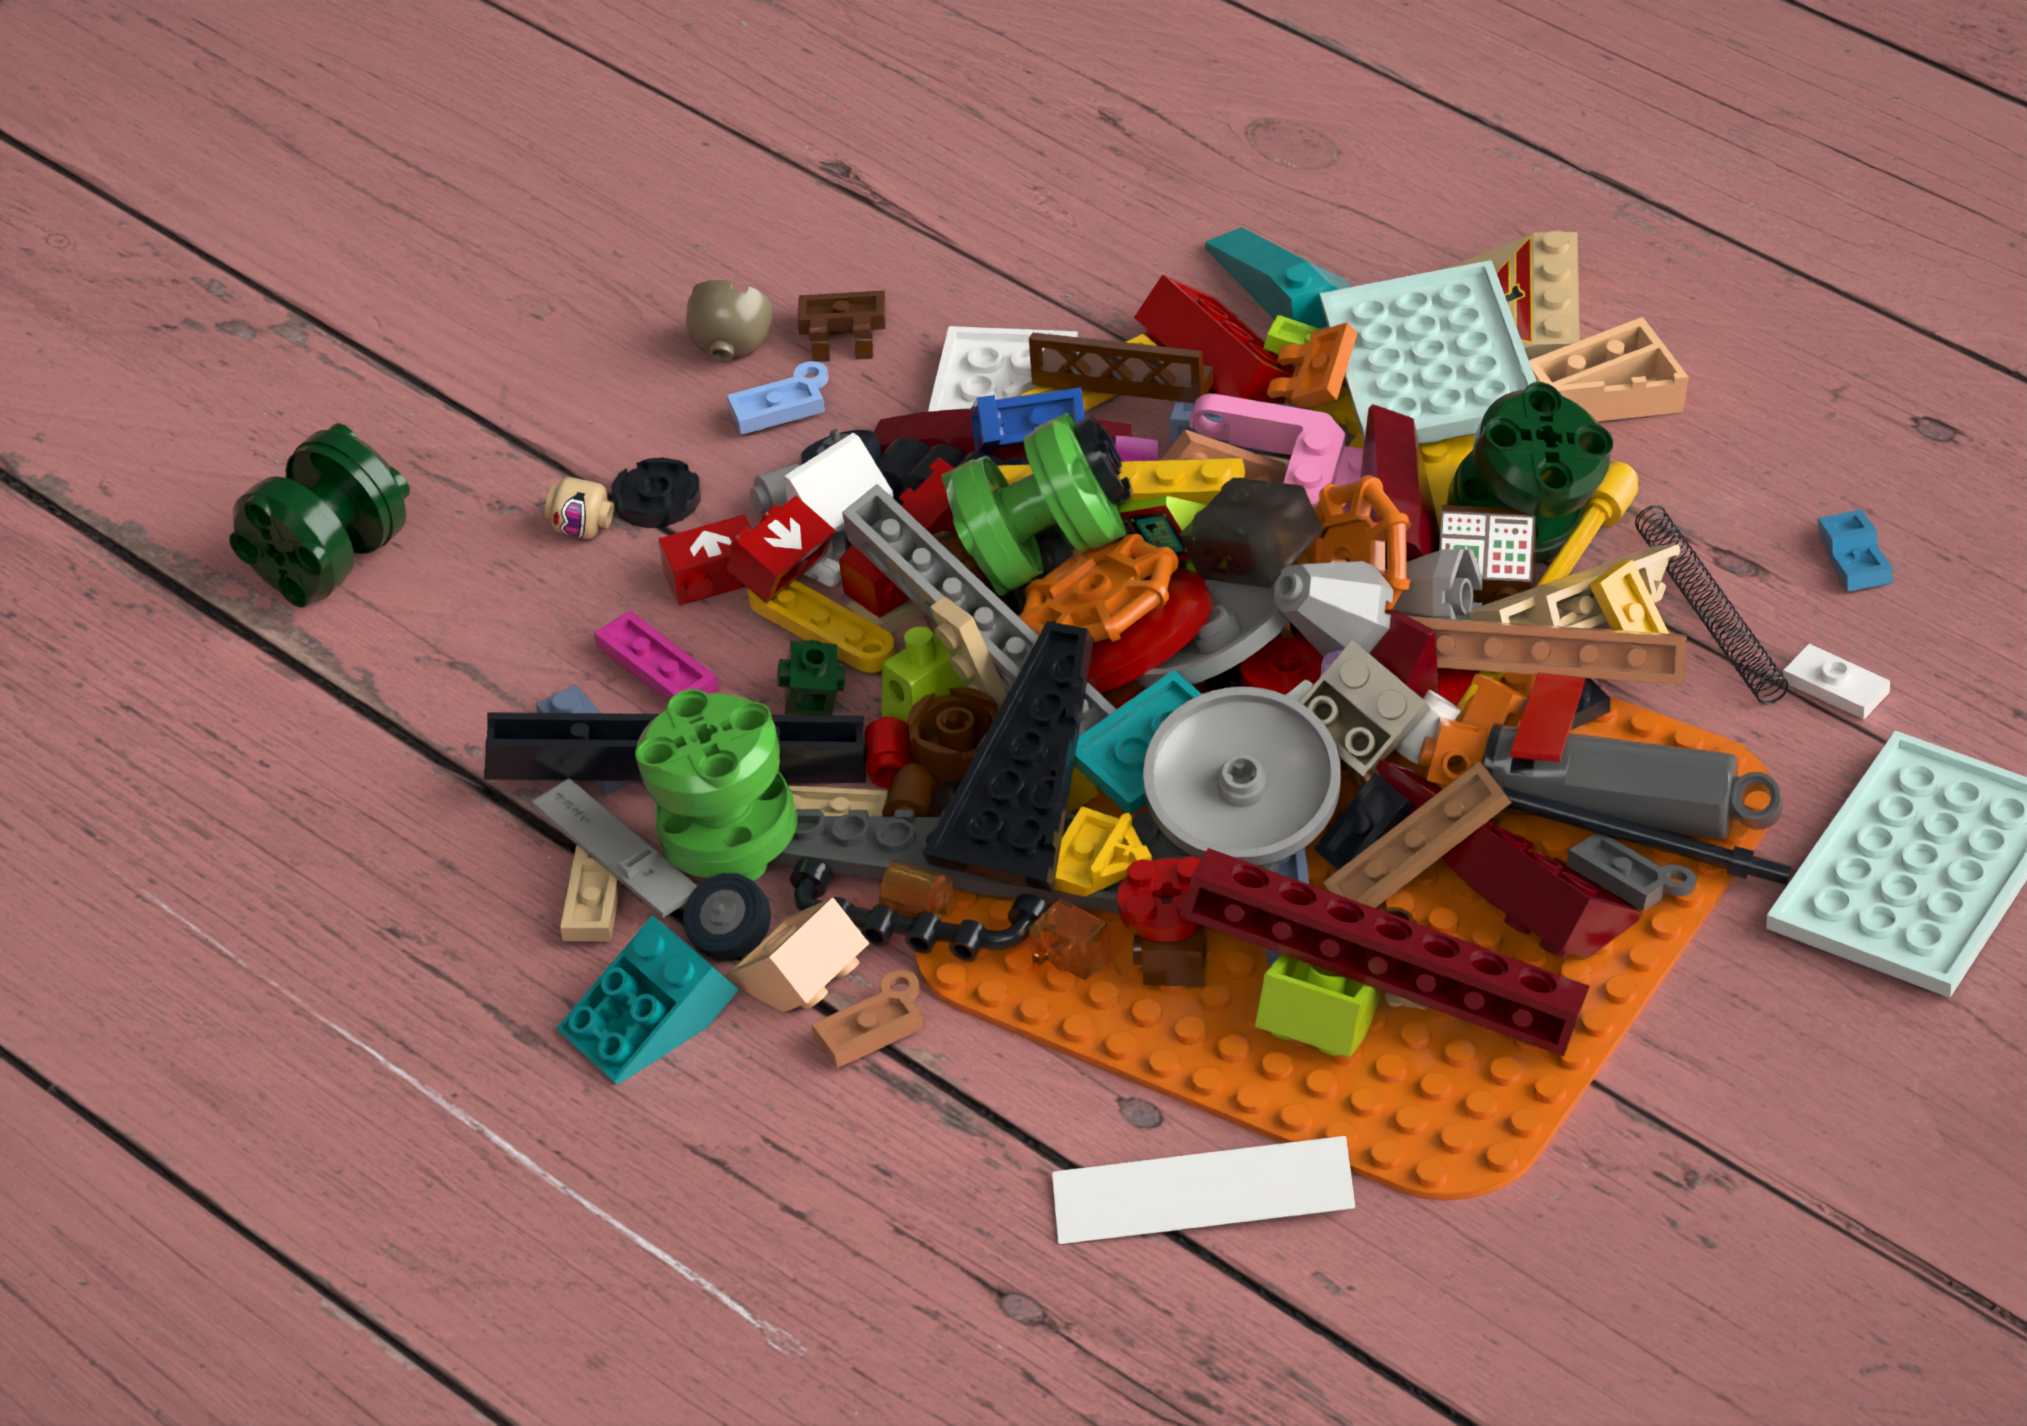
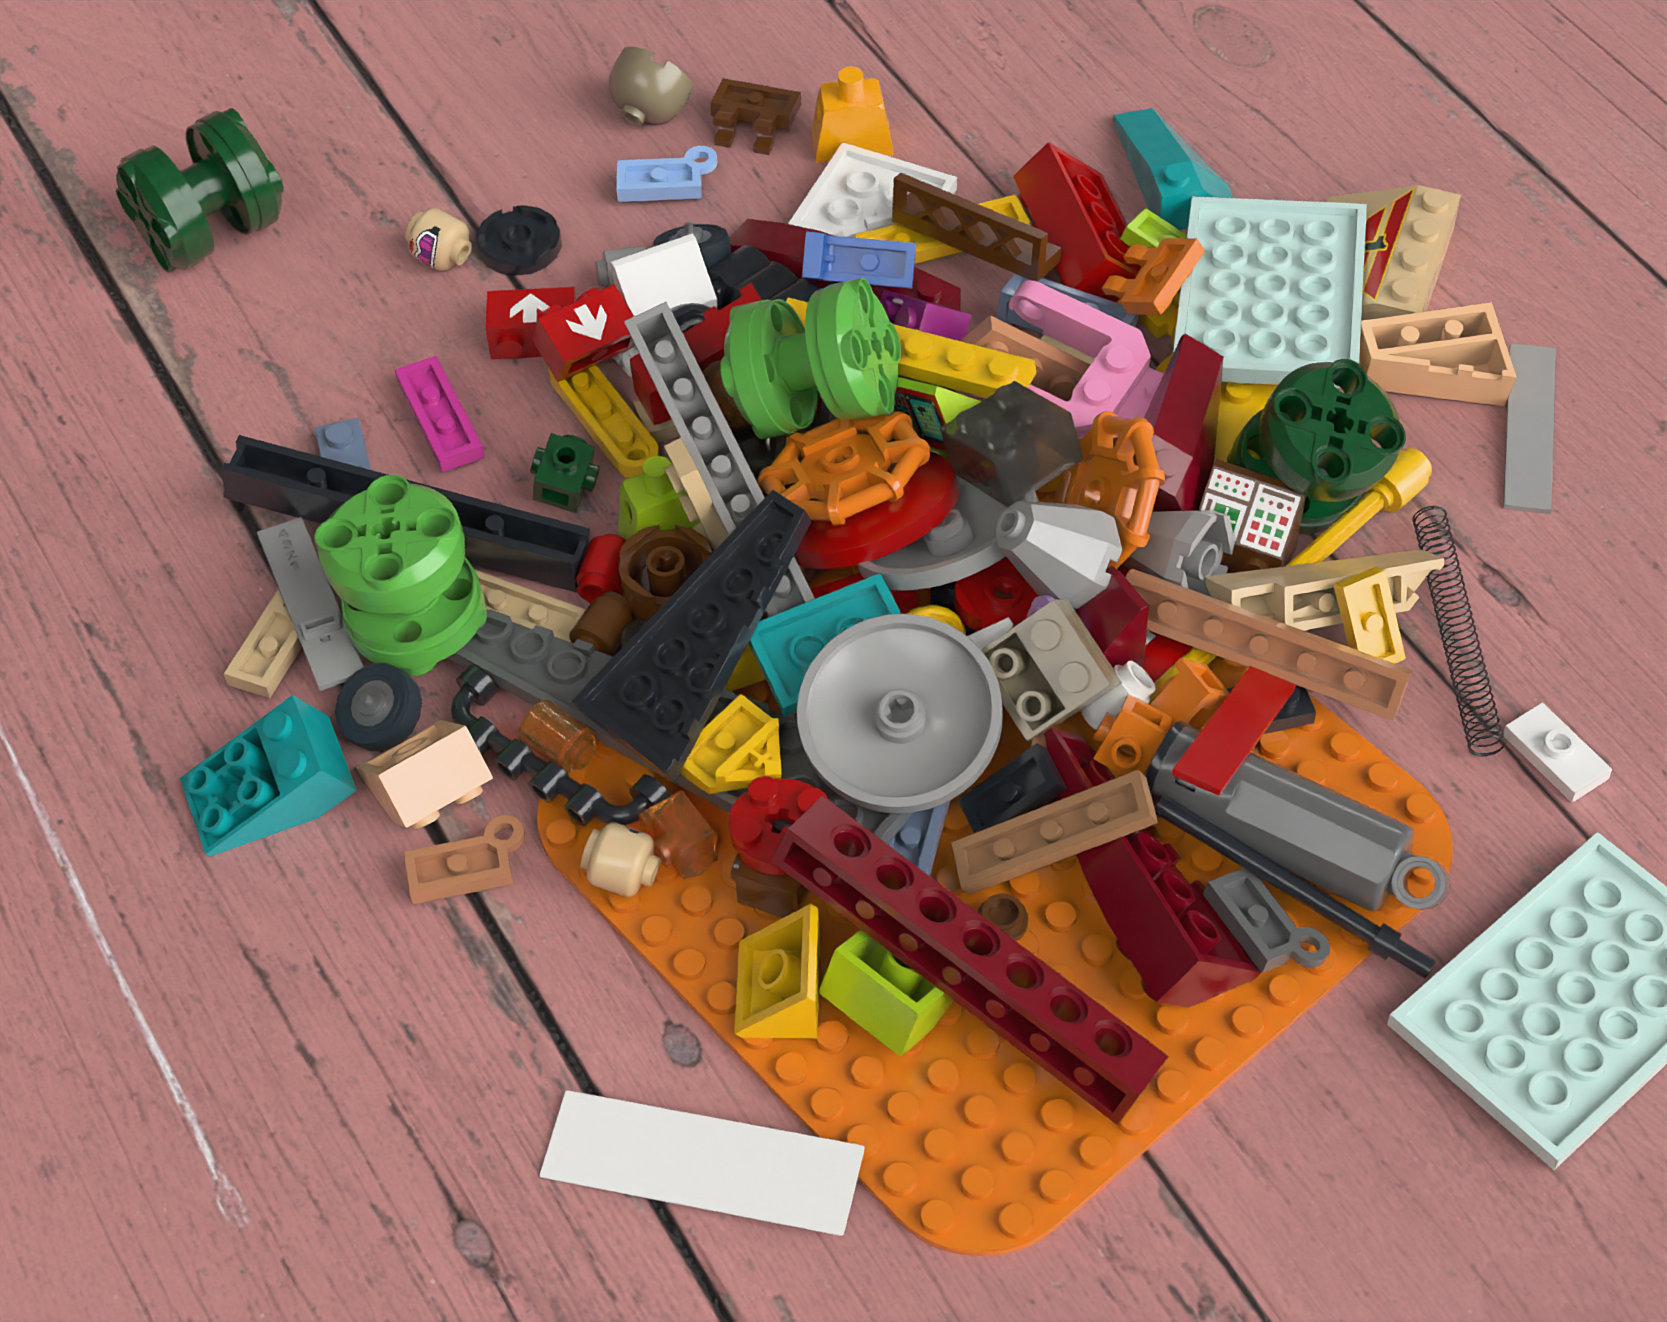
camera: 15 degrees right, 10 degrees up
(946, 296) = (851, 114): none -> light orange torso
(1025, 972) = (620, 859): none -> tan head
(1103, 460) = (889, 332): black tile -> none
(1217, 1024) = (780, 979): none -> yellow slope
(1716, 426) = (1530, 430): none -> light grey piece
(1854, 550) = (1624, 607): dark azure slope -> none

